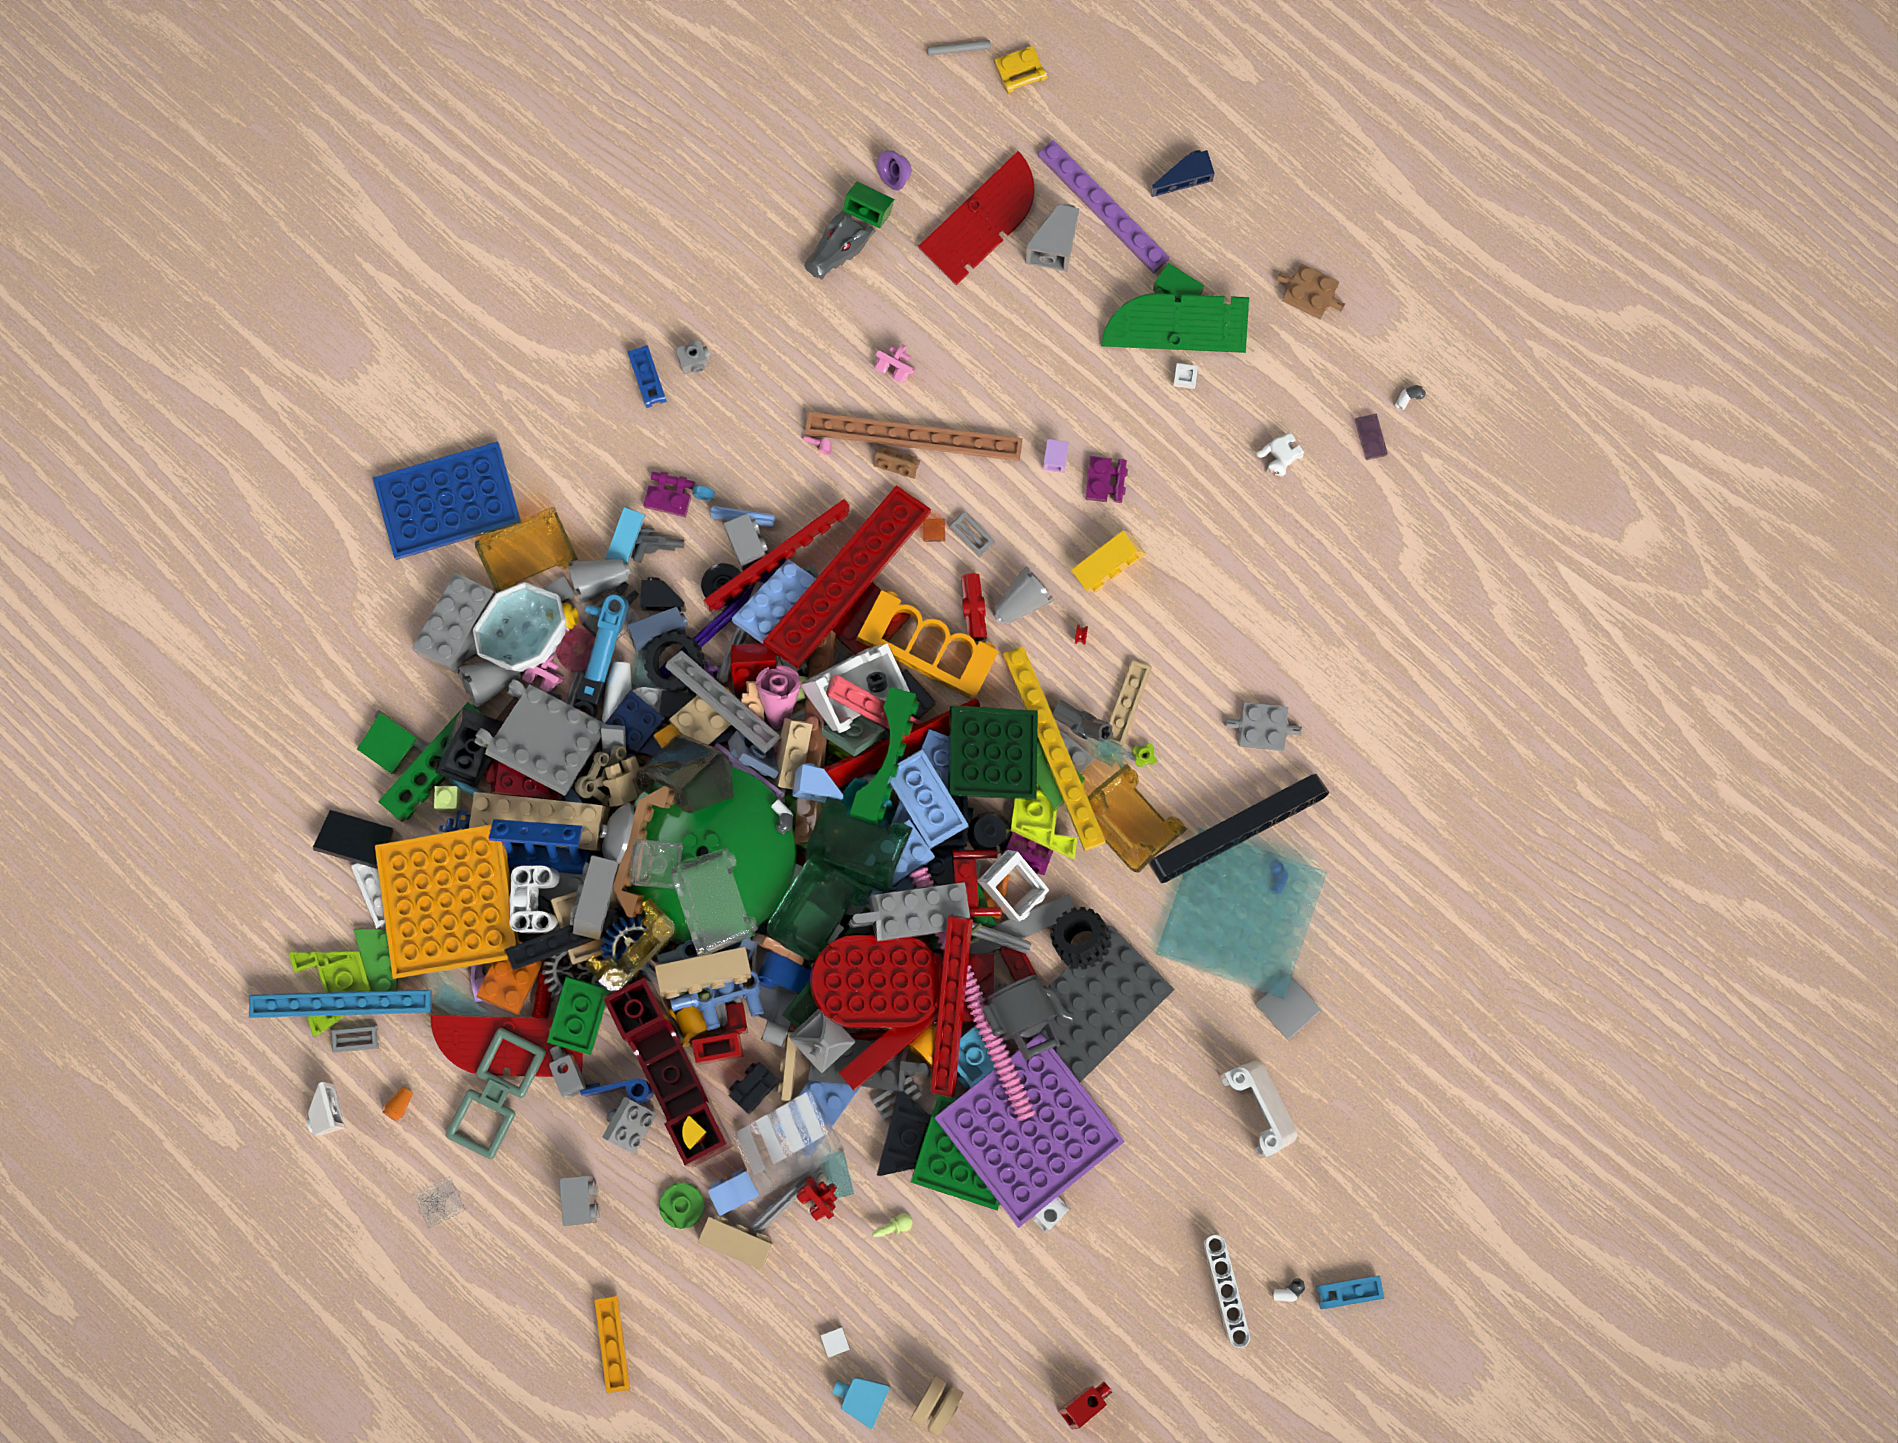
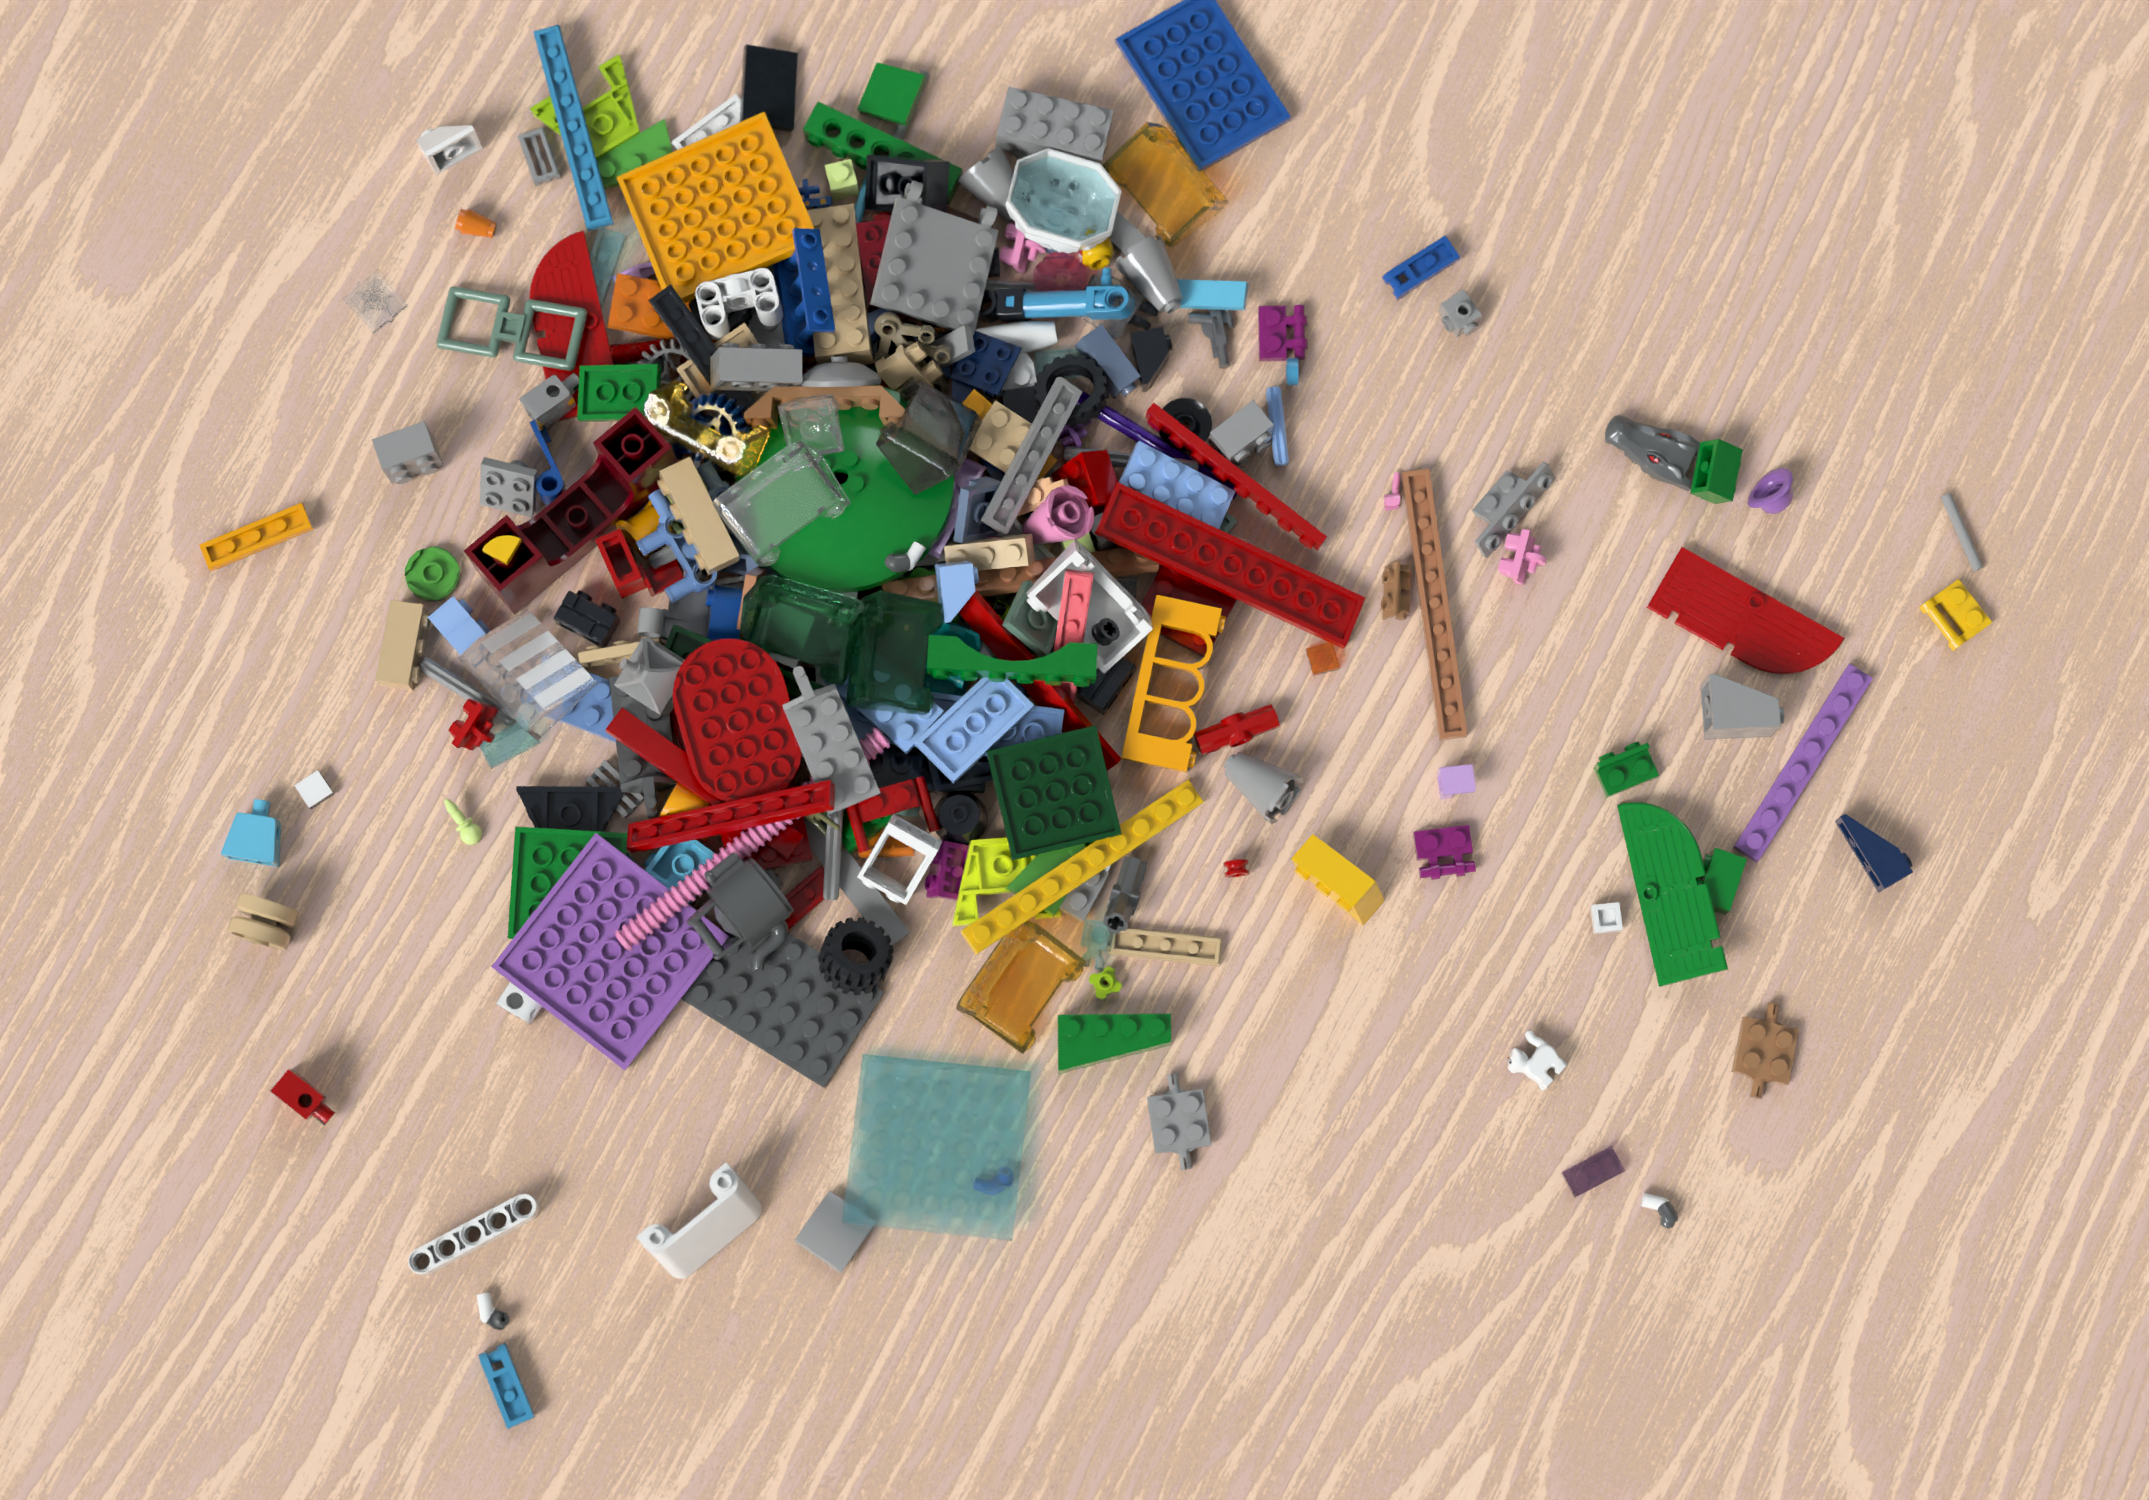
camera: 75 degrees right, 0 degrees up
(850, 363) = (1507, 504): none -> light grey bracket
(984, 547) = (1317, 724): light grey tile -> none
(1077, 332) = (1626, 769): none -> green bracket
(1188, 765) = (1108, 1037): none -> green wedge
(1238, 828) = (1039, 1117): black beam -> none

